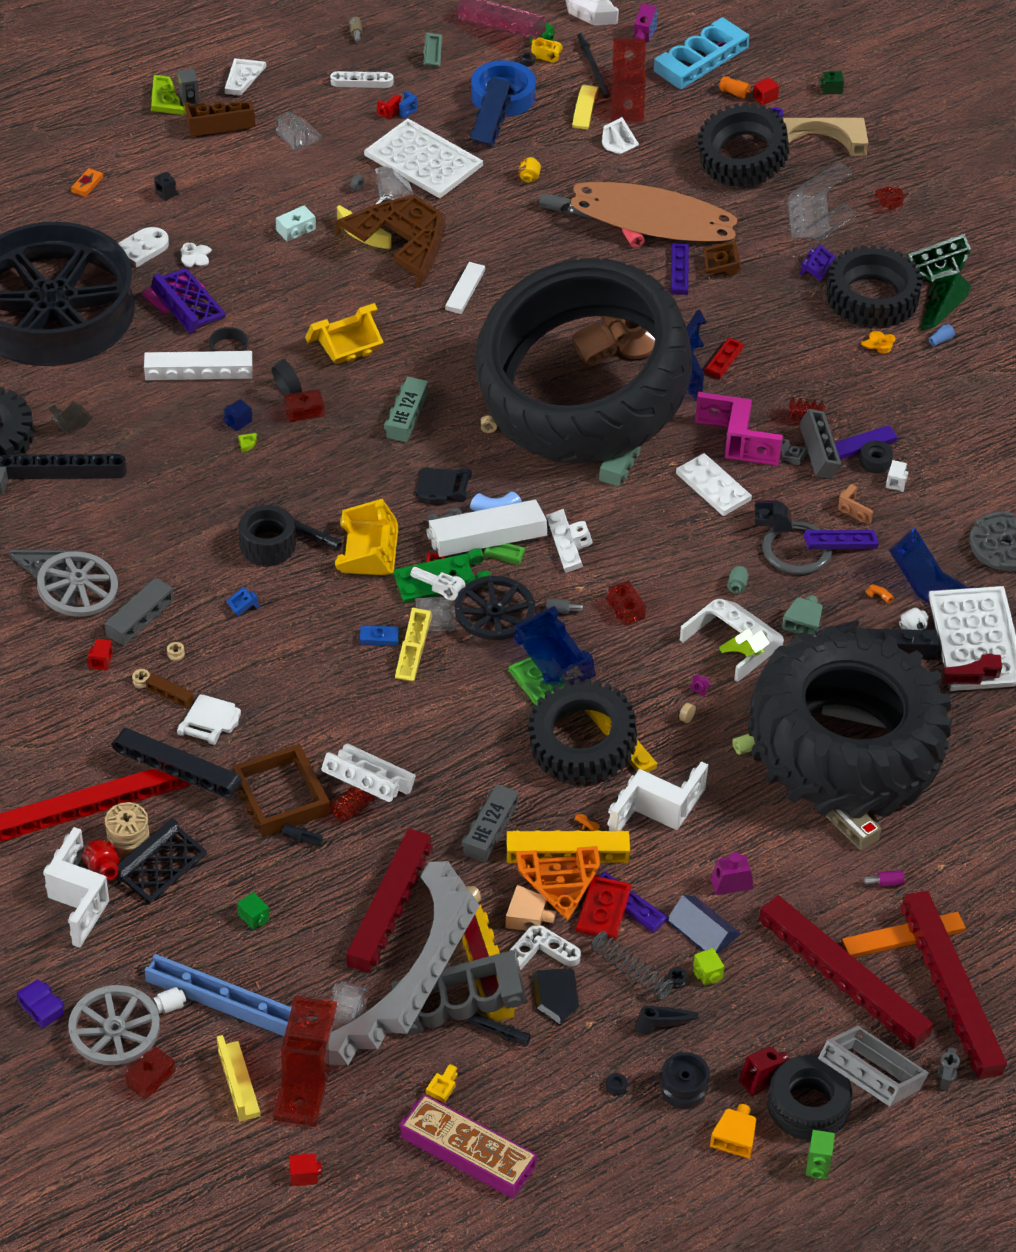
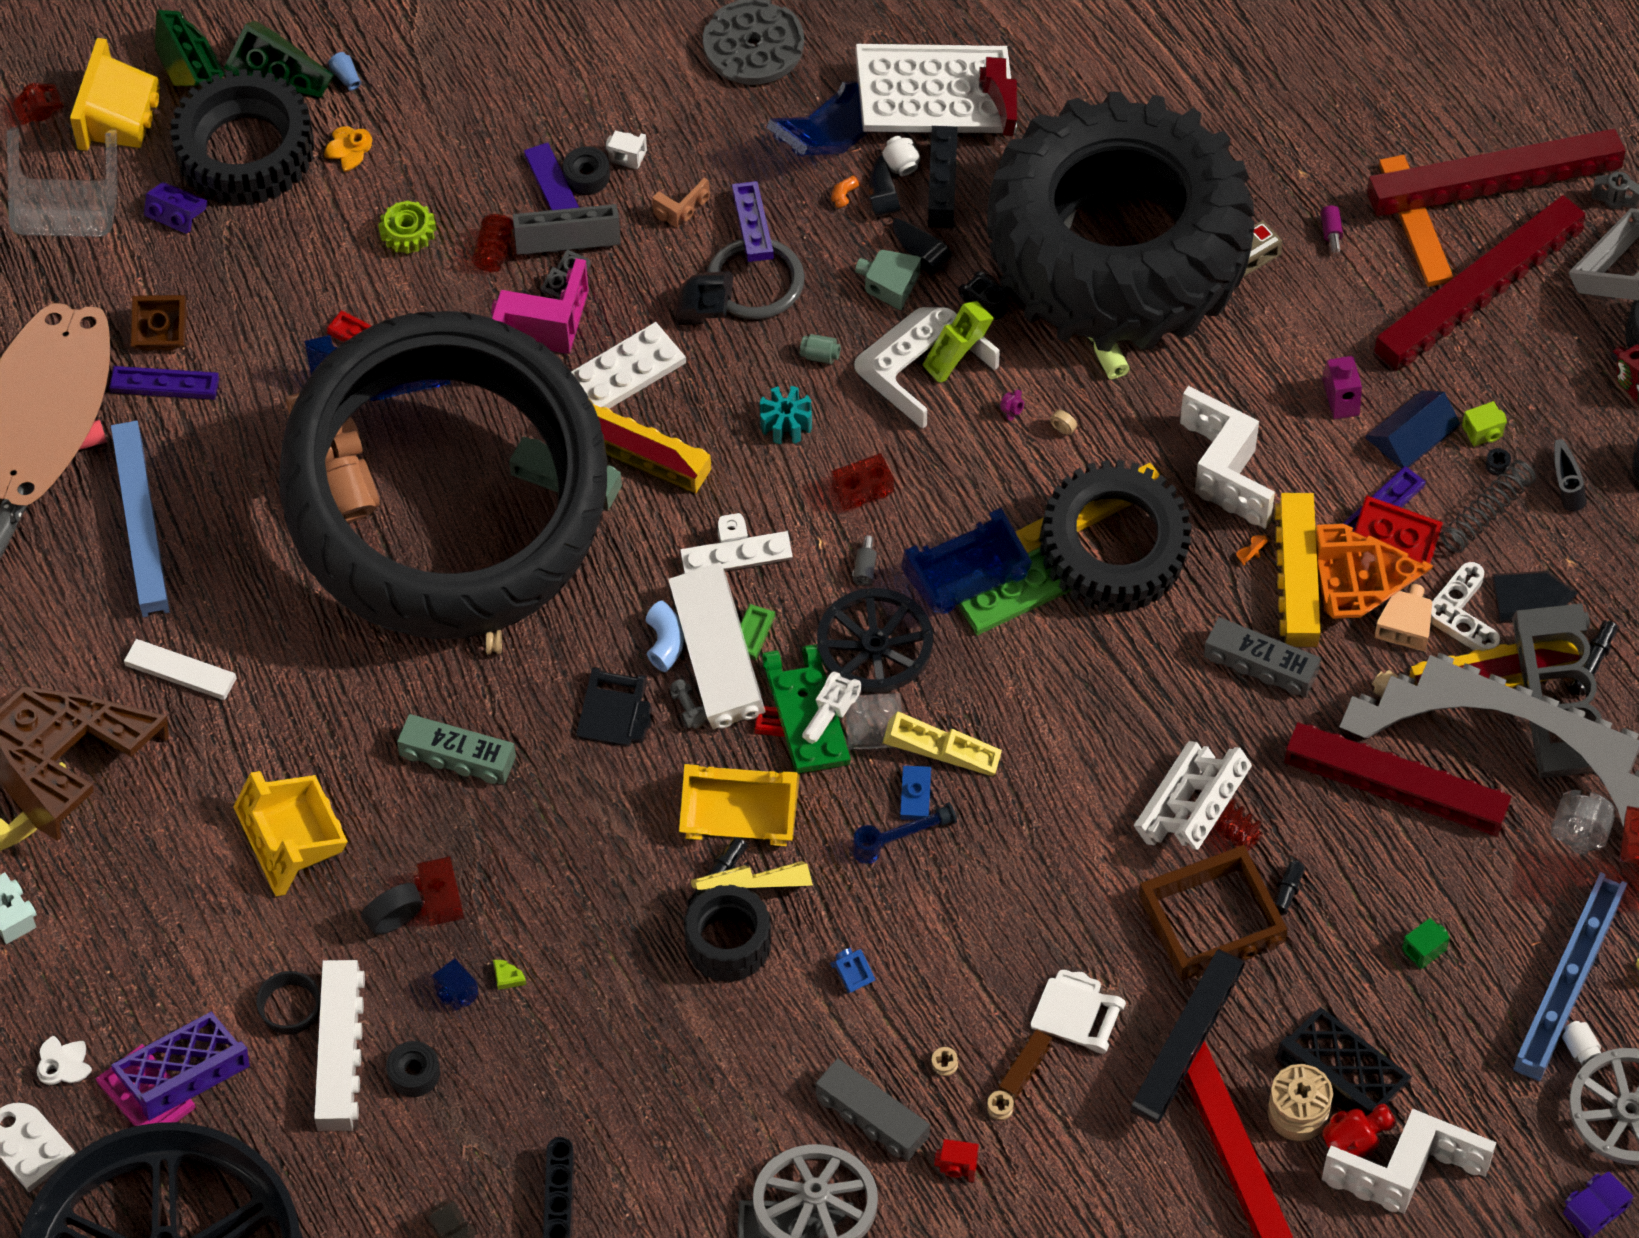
camera: 85 degrees left, 10 degrees up
(181, 408) = (409, 1053): none -> black tyre
(306, 541) = (788, 875): none -> light yellow slope
(337, 611) = (872, 835): none -> clear blue piece
(523, 266) = (140, 518): none -> medium blue tile
(649, 485) = (653, 451): none -> yellow brick
(679, 562) = (785, 415): none -> teal gear
(814, 369) = (407, 227): none -> lime gear
(879, 615) = (882, 191): none -> black piece
(895, 223) = (113, 99): none -> yellow windscreen

